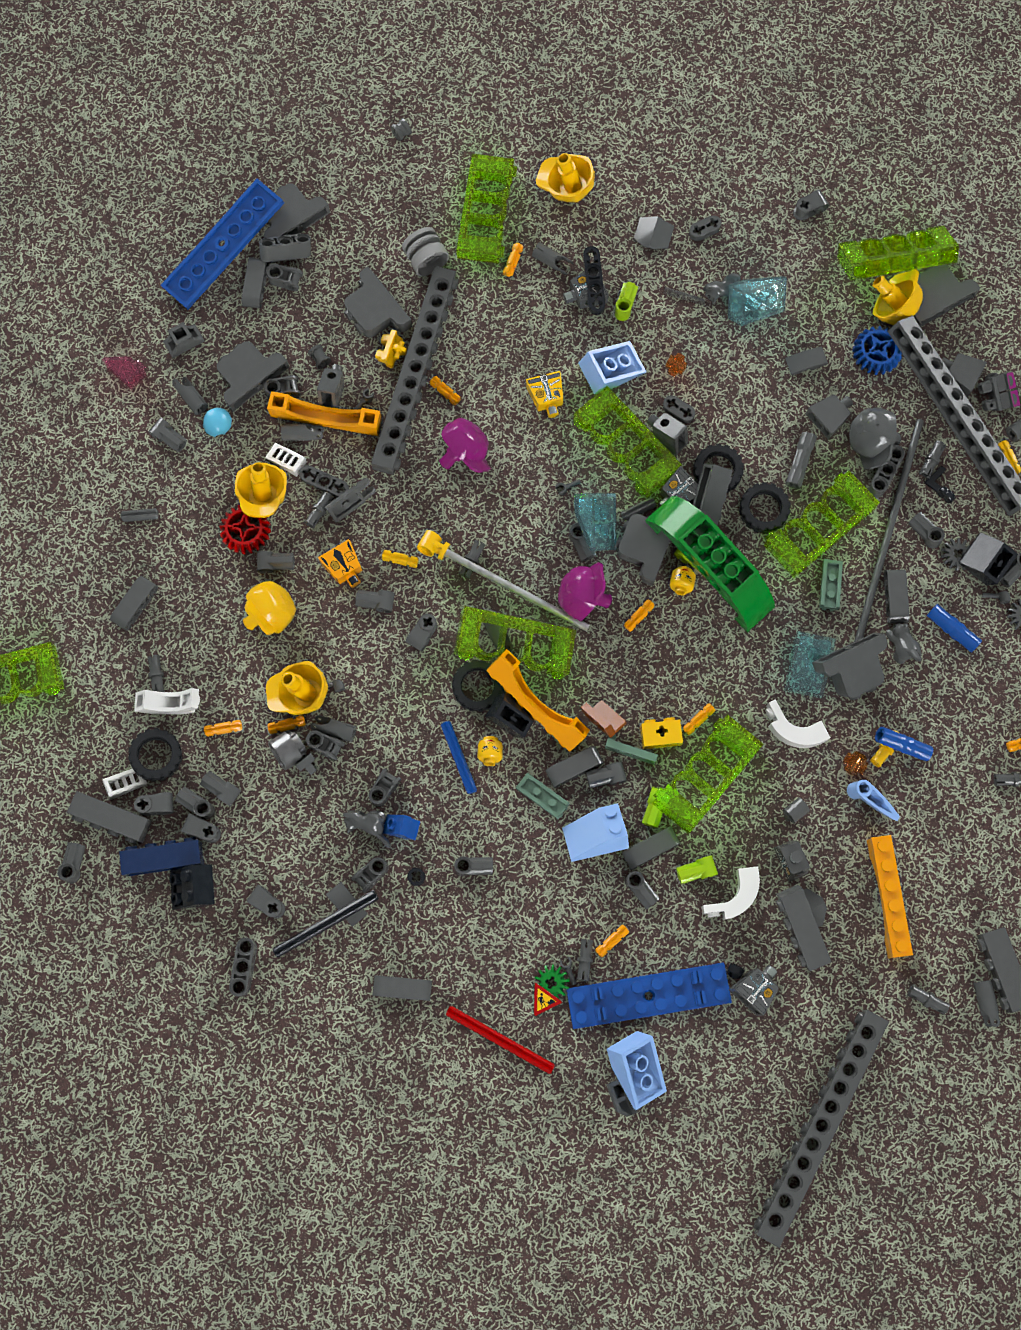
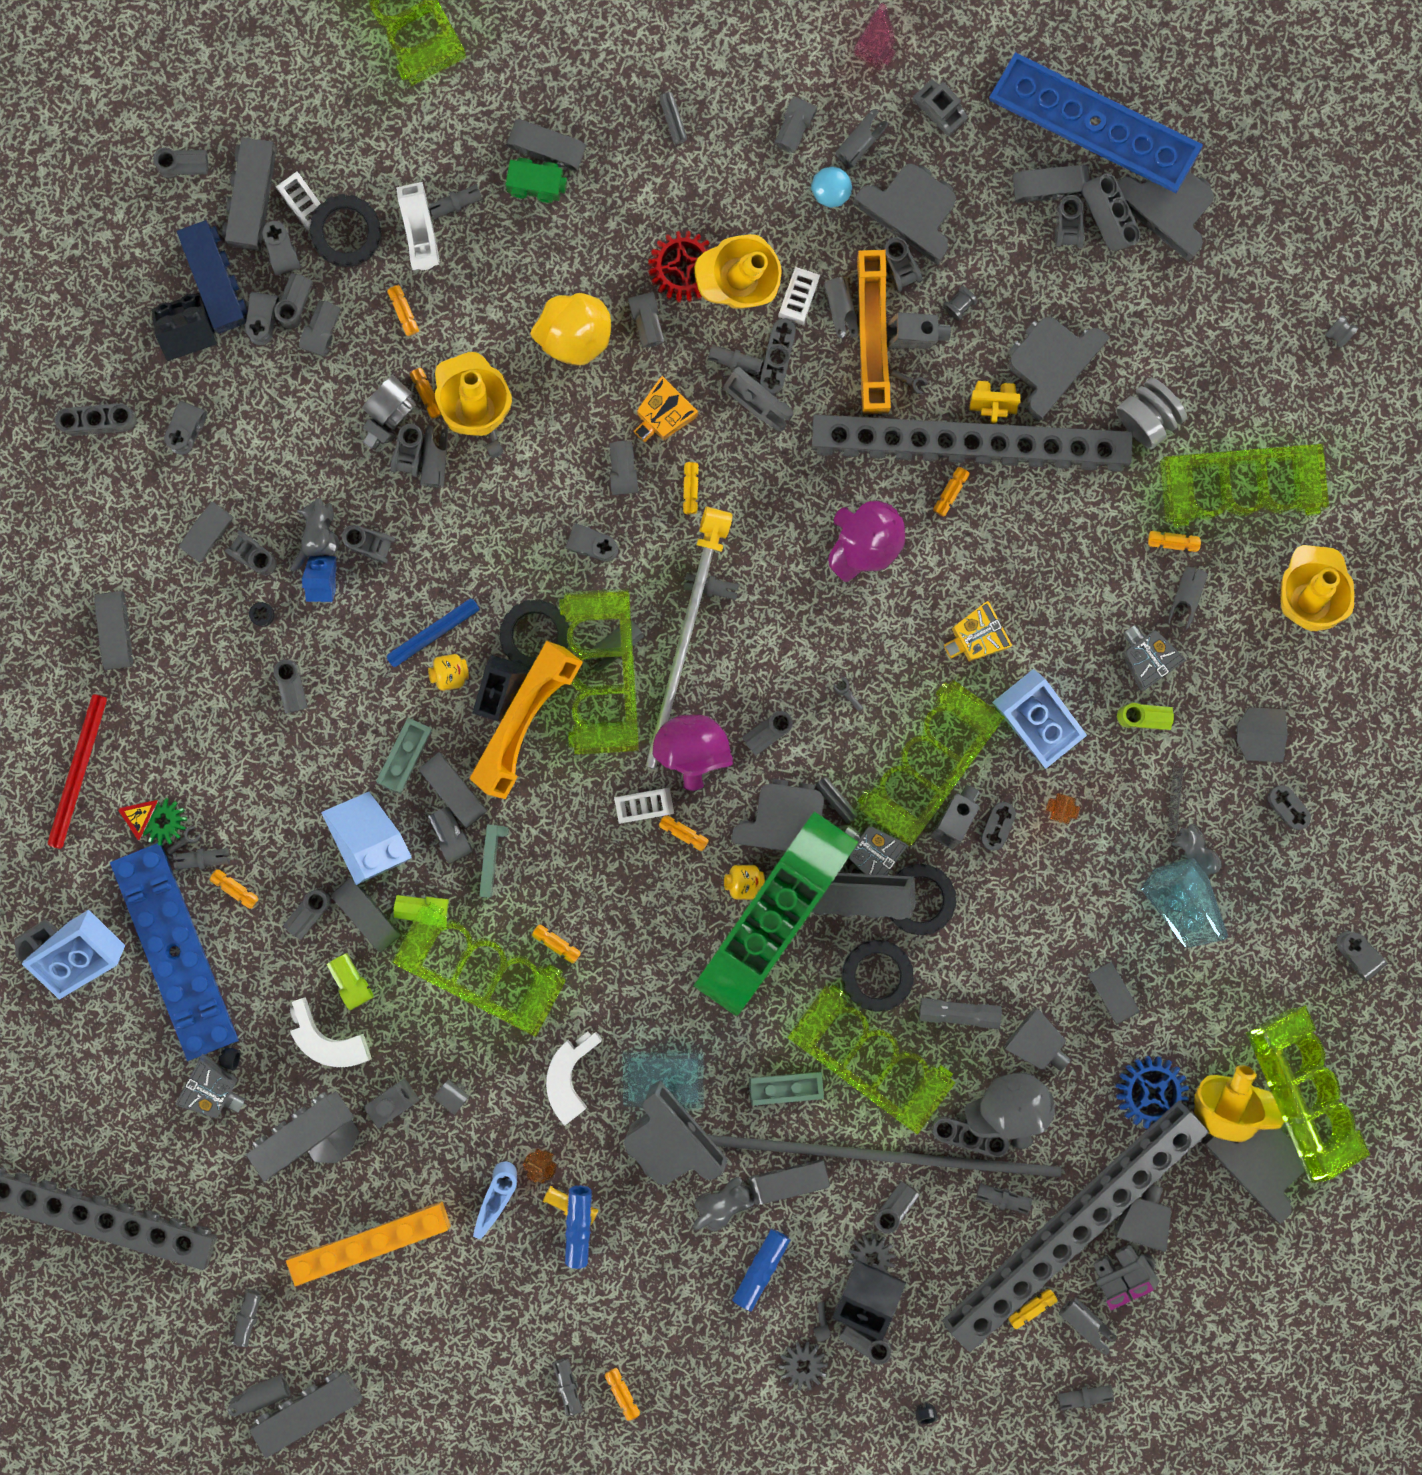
camera: 75 degrees right, 10 degrees up
(157, 613) = (535, 180): none -> green brick
(325, 923) = (172, 511): black axle -> none
(594, 280) = (1160, 663): black beam -> none
(597, 519) = (802, 745): clear light blue slope -> none
(604, 718) = (526, 815): panel -> none
(621, 623) = (665, 799): none -> white slope
(671, 738) = (518, 910): yellow brick -> none
(943, 491) = (960, 1218): black piece -> none

